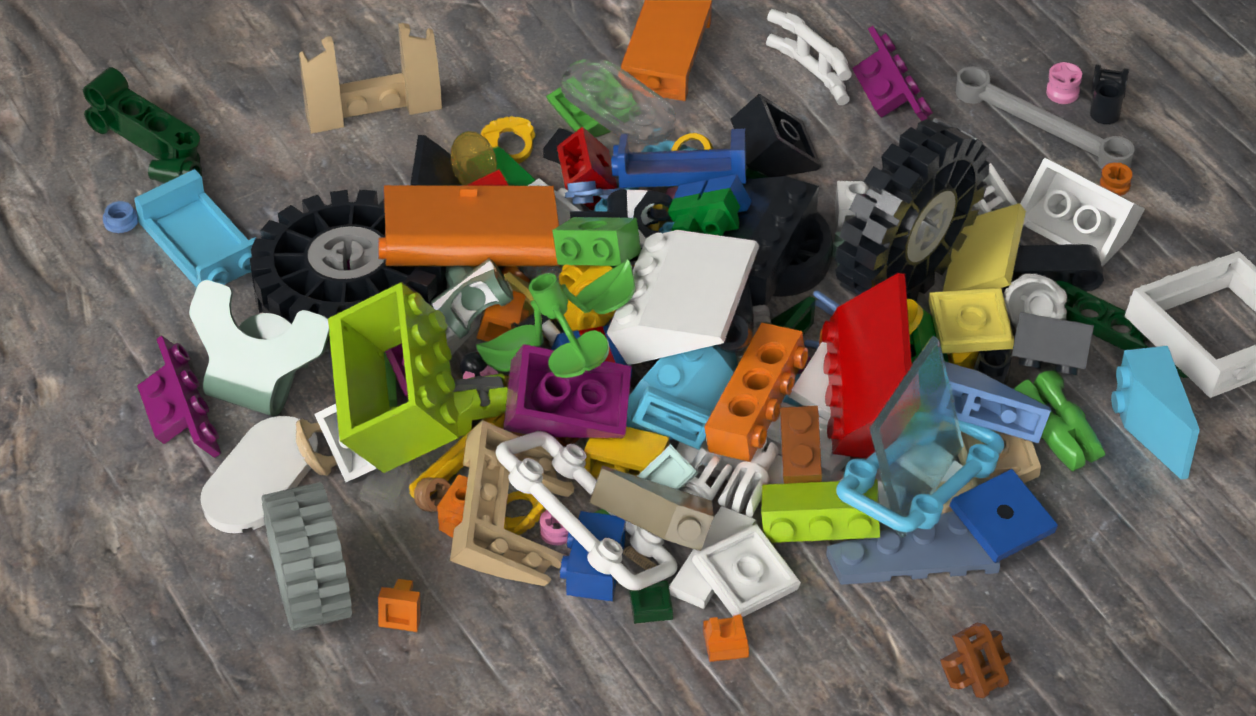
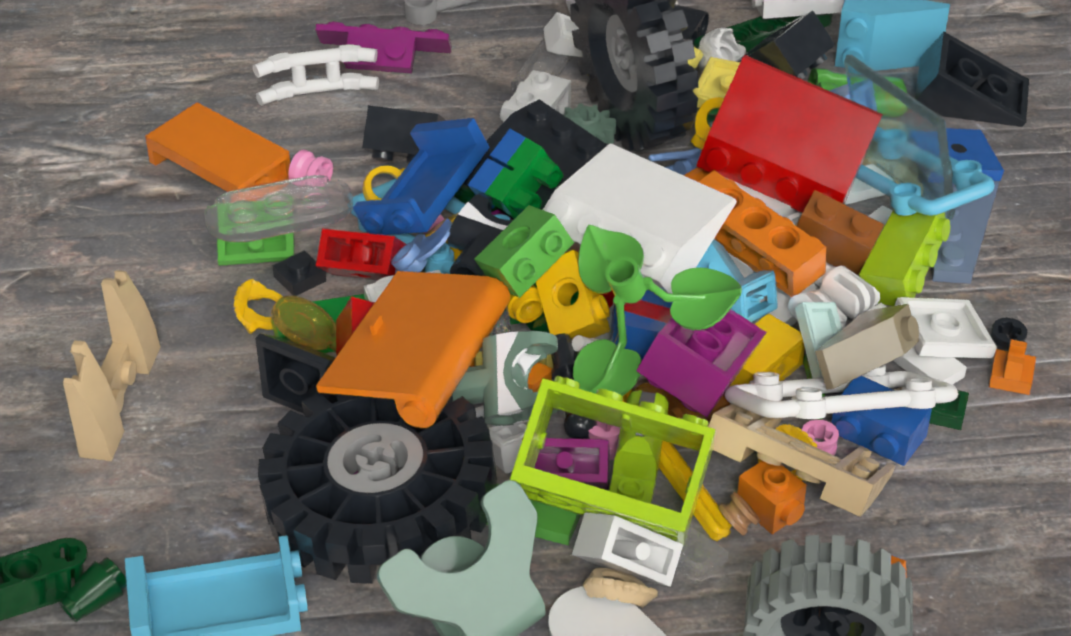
camera: 65 degrees left, 5 degrees down
(687, 102) = (306, 164): none -> bright pink wheel
(776, 614) = (1004, 327): none -> black bush
(1138, 505) = (970, 85): none -> black slope

